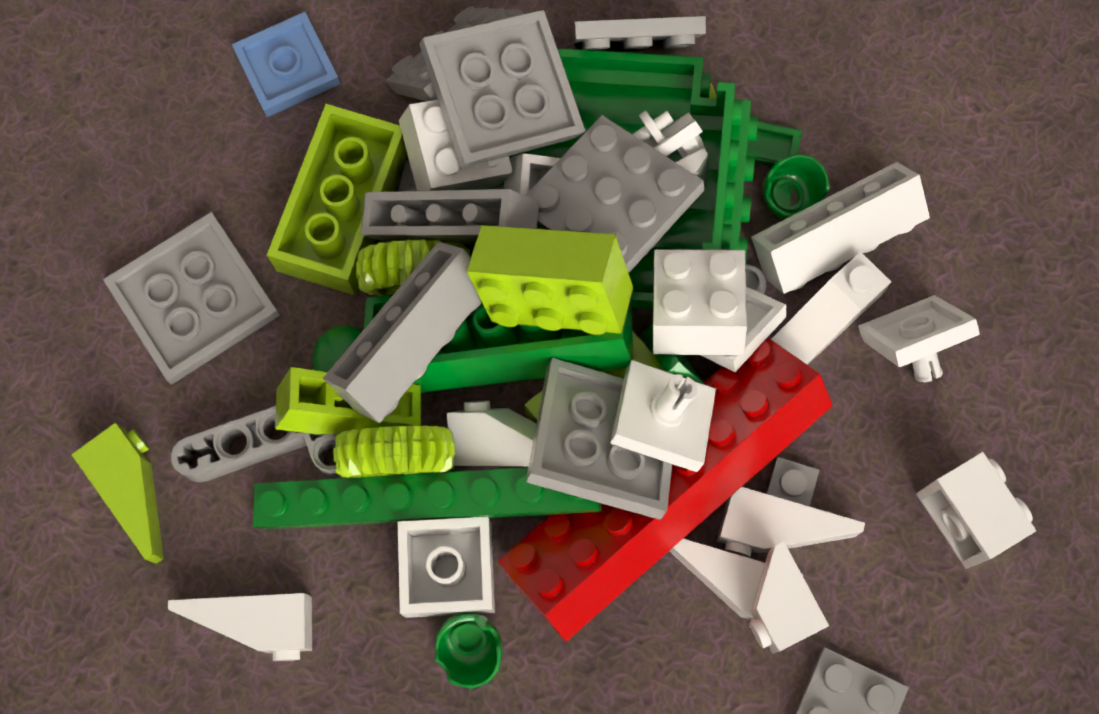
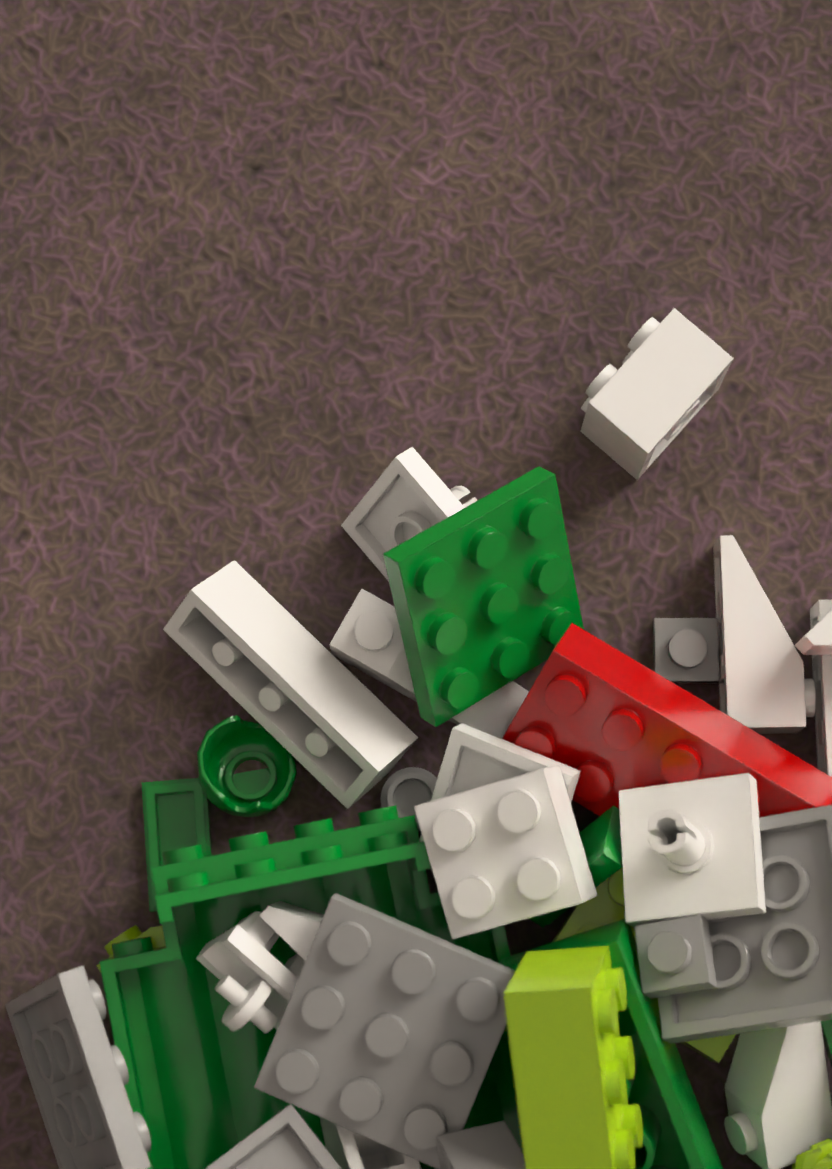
camera: 110 degrees left, 5 degrees up
(600, 381) = (675, 956): none -> light grey plate
(870, 348) = (484, 594): none -> green plate

